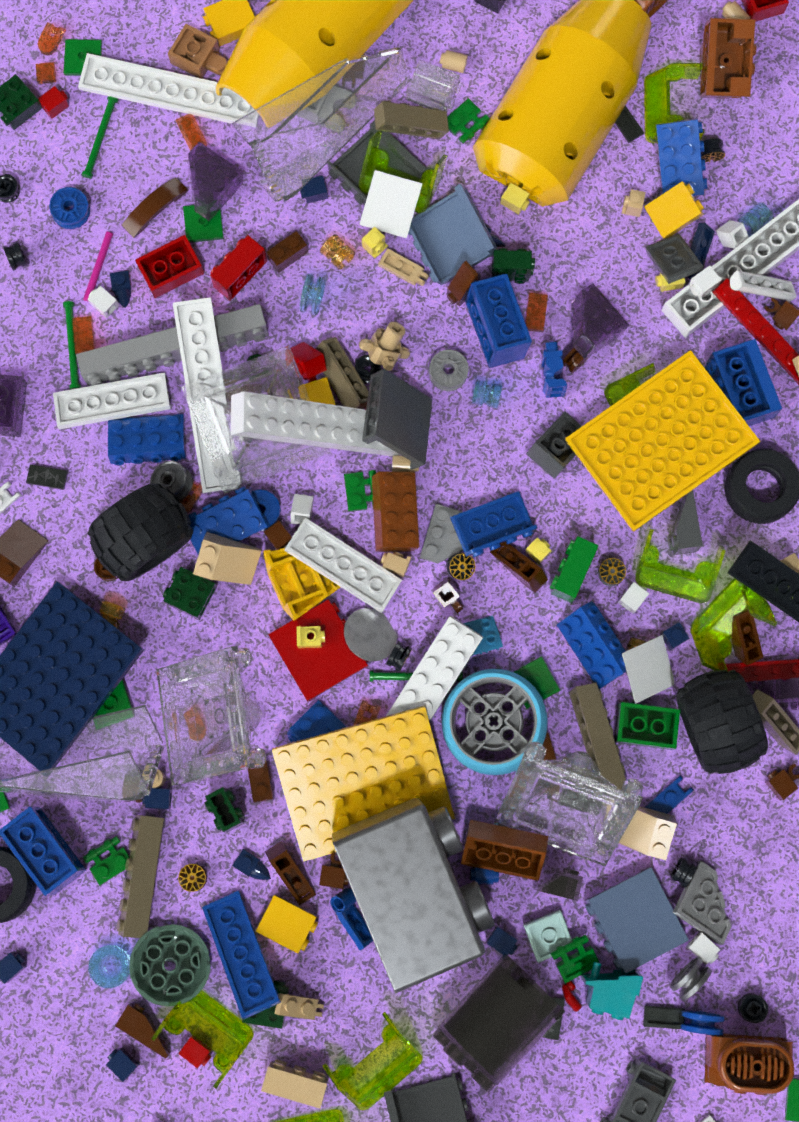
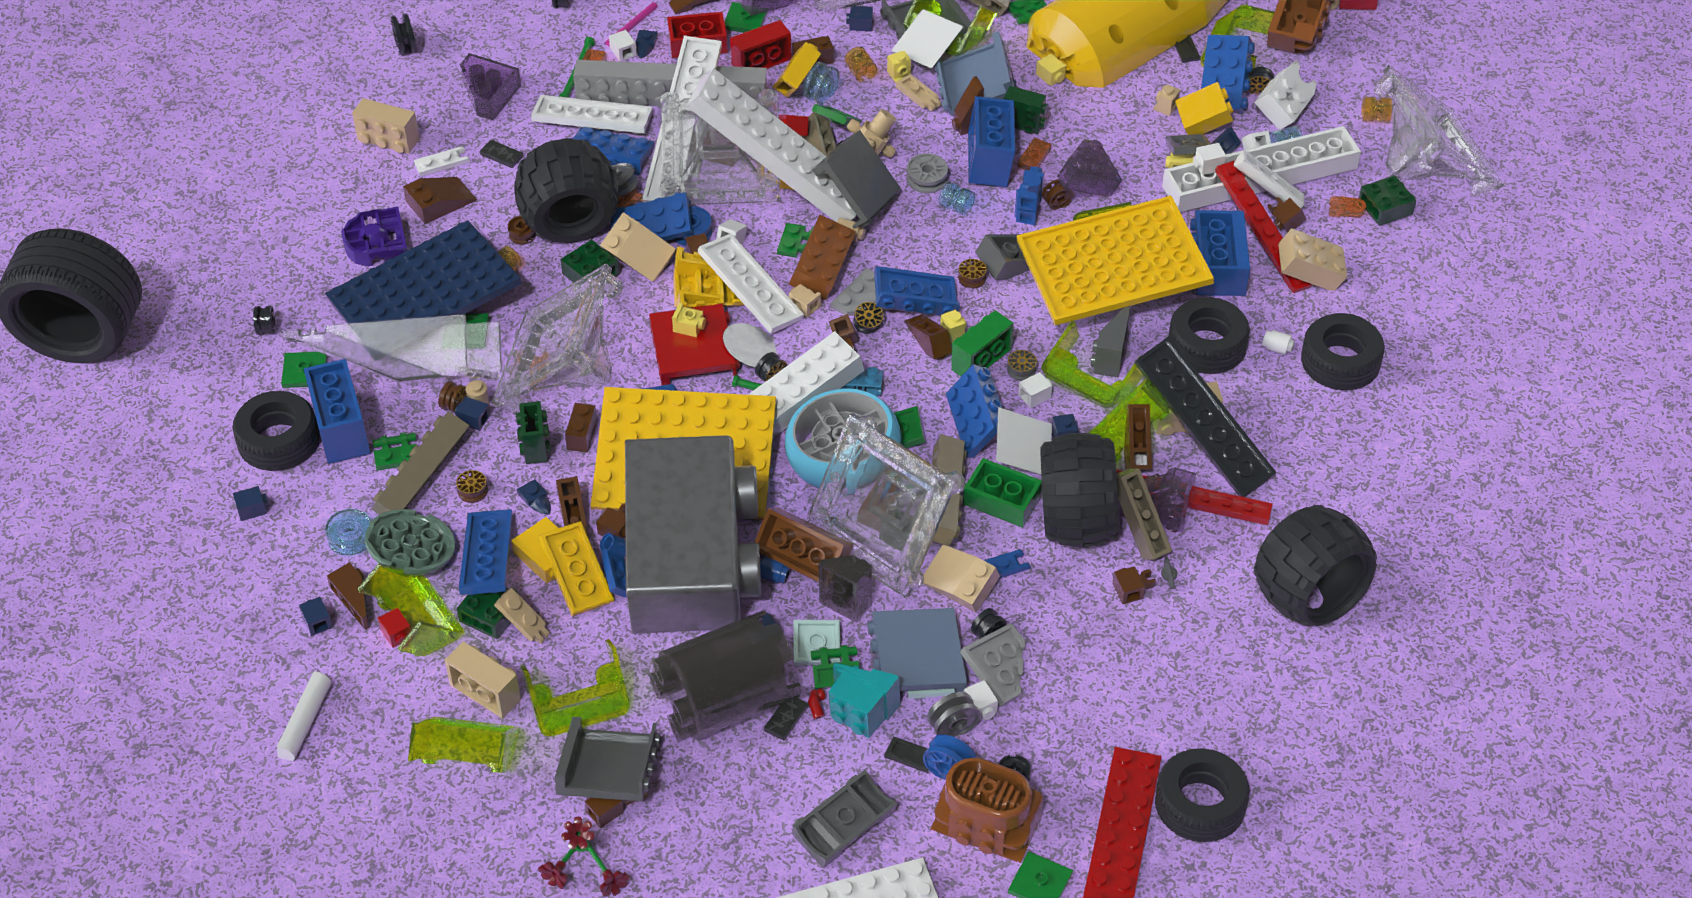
camera: 20 degrees right, 30 degrees down
(286, 289) = (797, 69): none -> yellow brick
(322, 939) = (576, 568): none -> yellow tile
(341, 328) = (836, 116): none -> green plate
(531, 478) = (972, 274): none -> reddish brown wheel
(742, 165) = (1285, 96): none -> white brick

